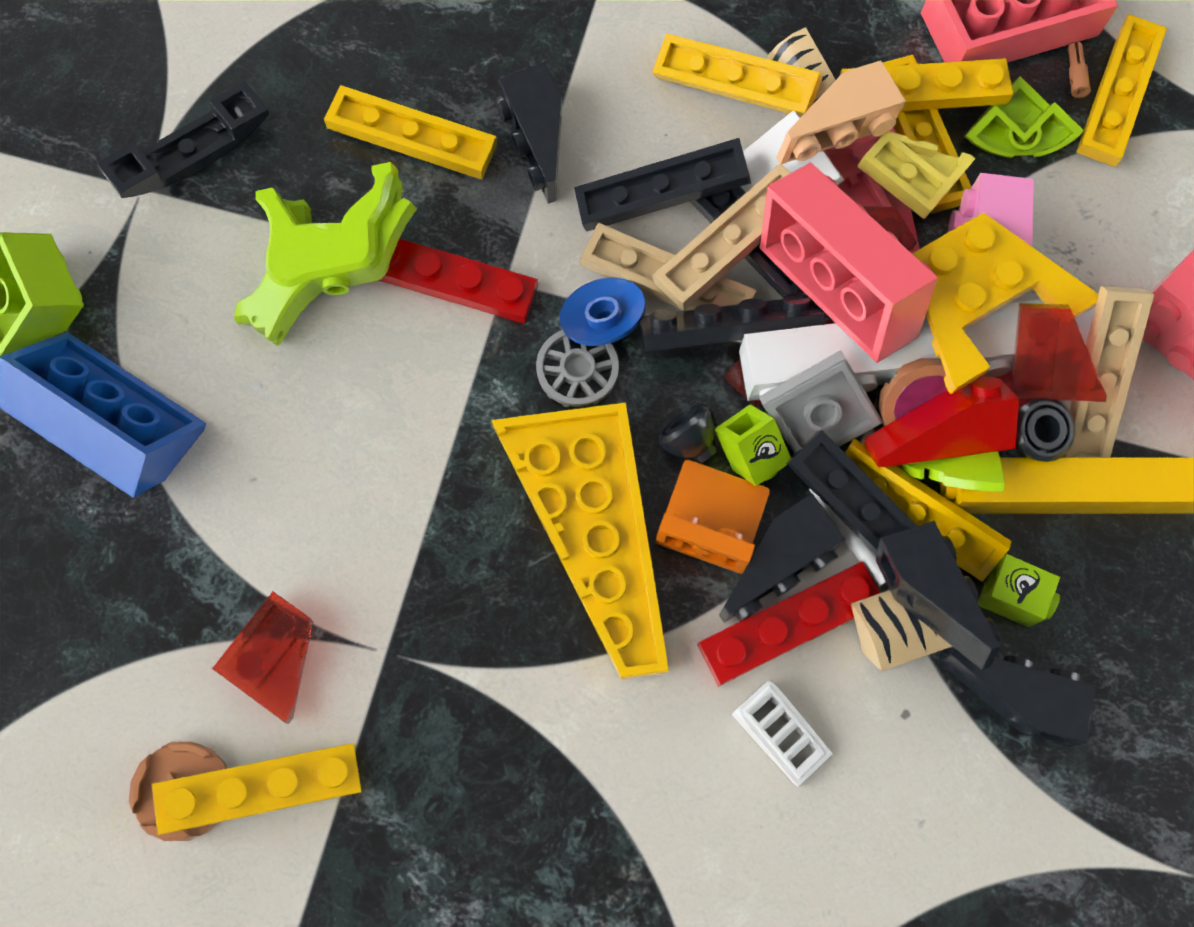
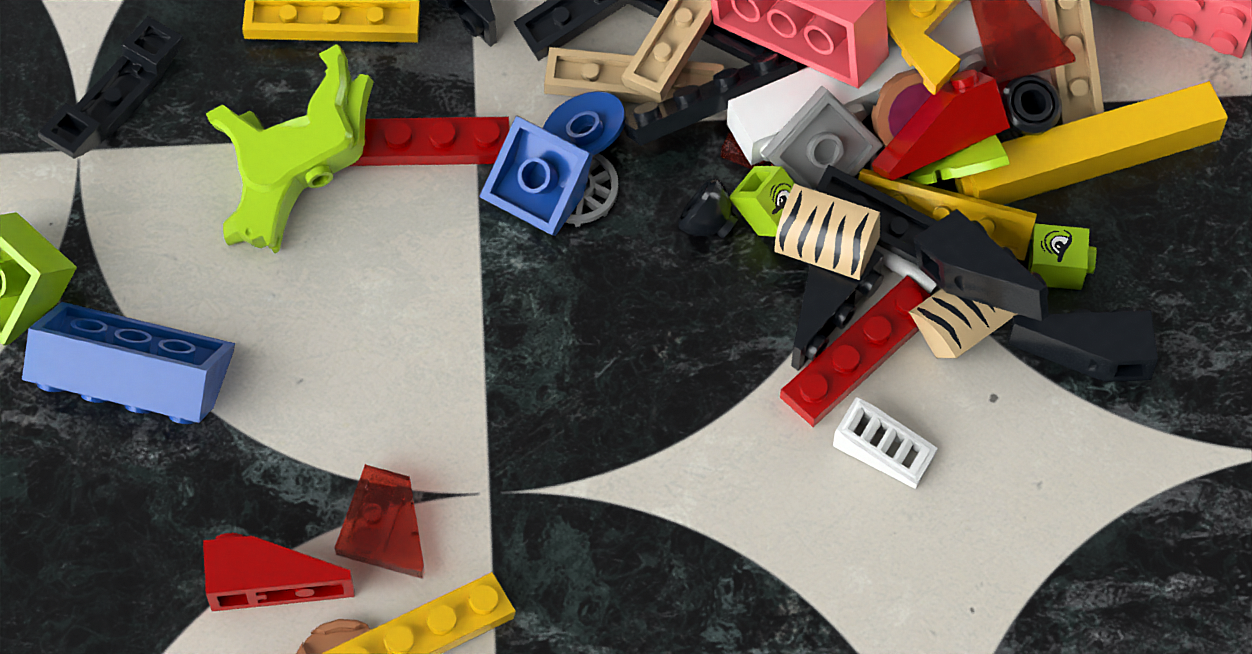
camera: 15 degrees left, 10 degrees down
(128, 667) = (260, 573): none -> red slope
(540, 350) = (538, 176): none -> blue slope
(589, 500) = (634, 300): yellow wing -> none
(713, 516) = (752, 281): orange bracket -> none
(796, 501) = (827, 231): none -> tan brick

